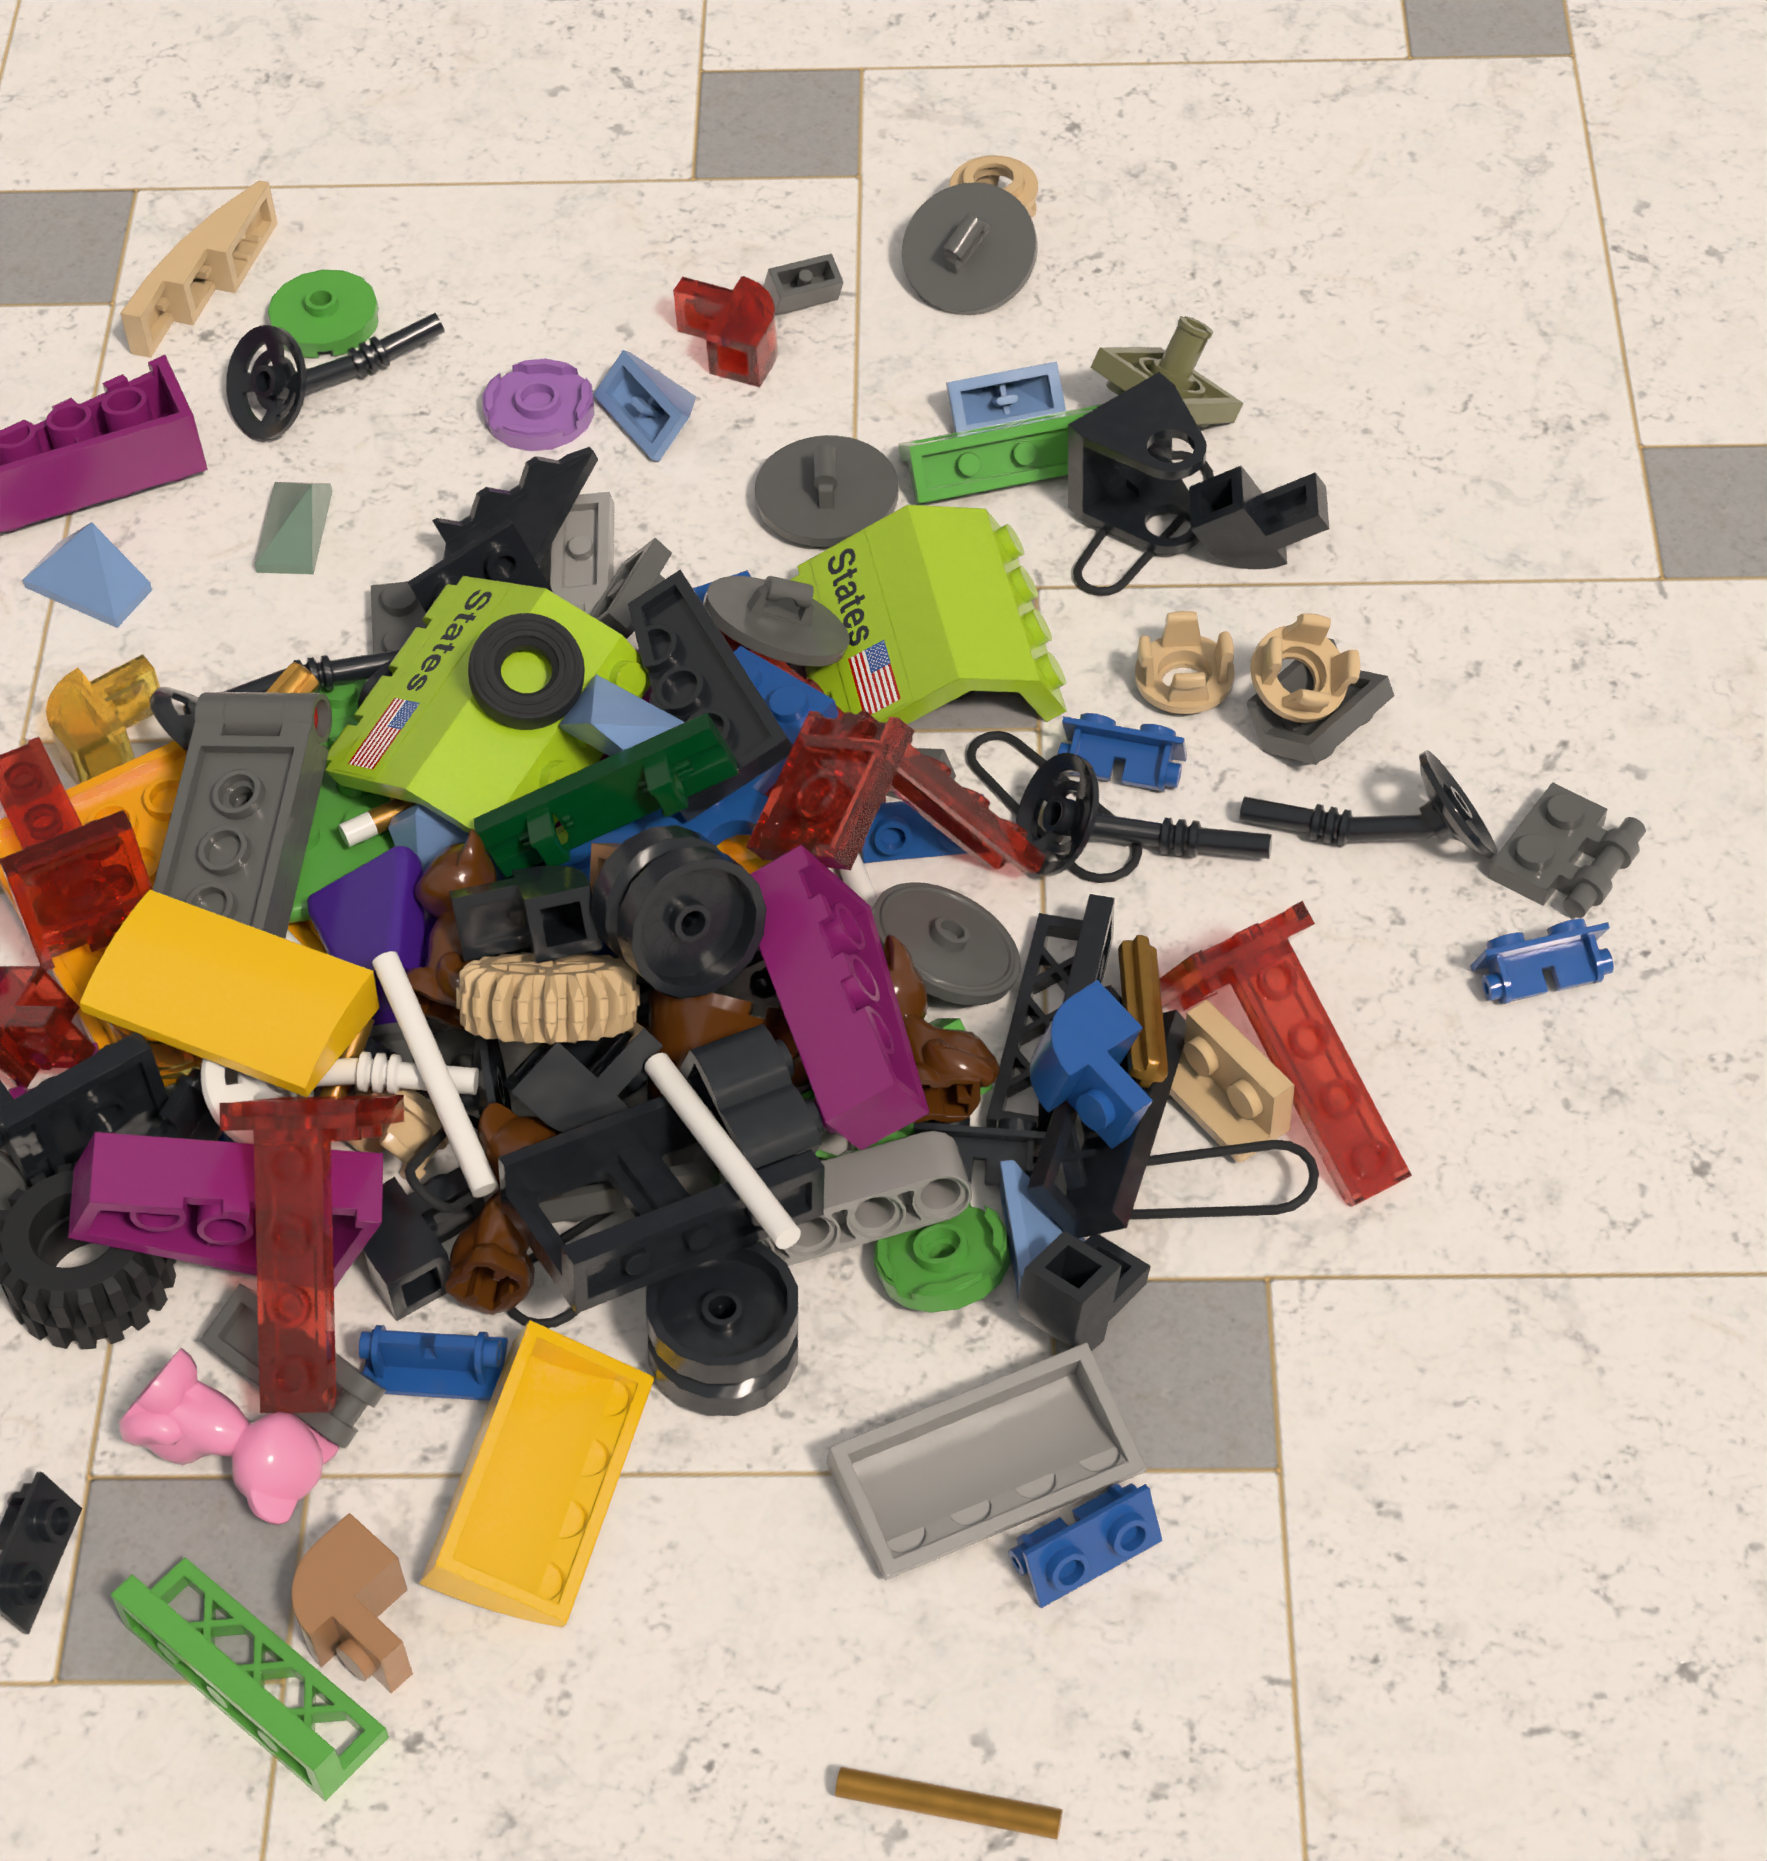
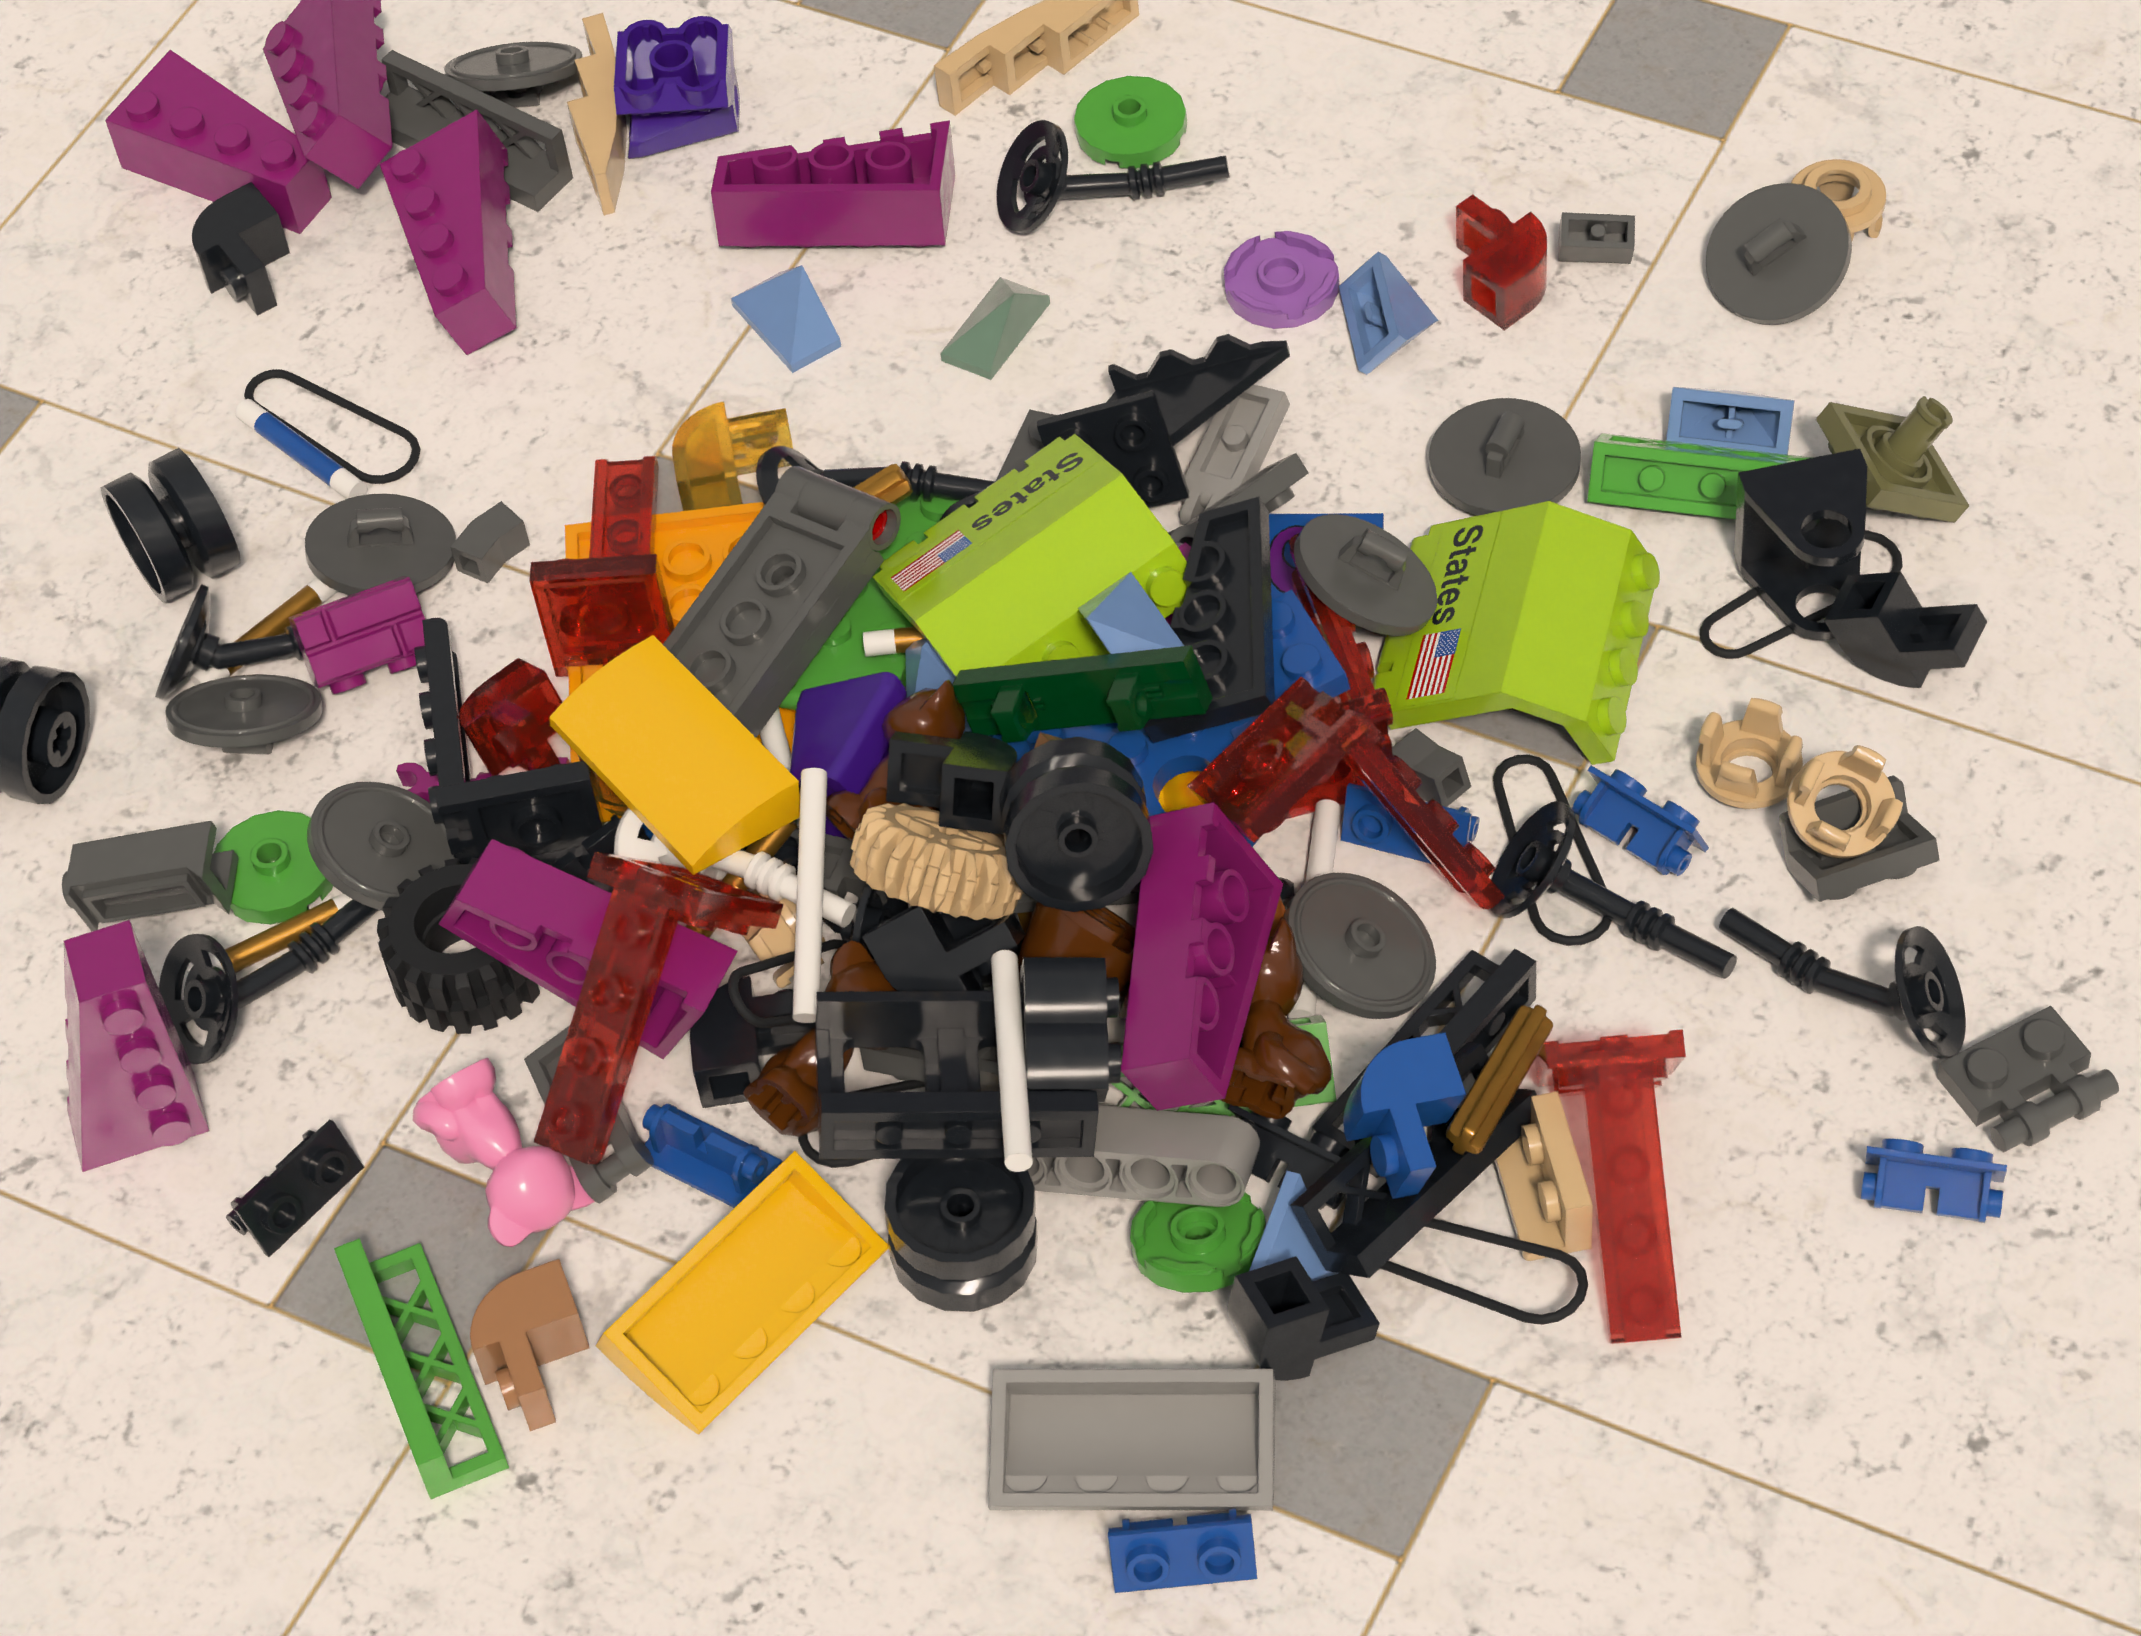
camera: 30 degrees right, 0 degrees up
(532, 633) = (1056, 510): black tyre -> none

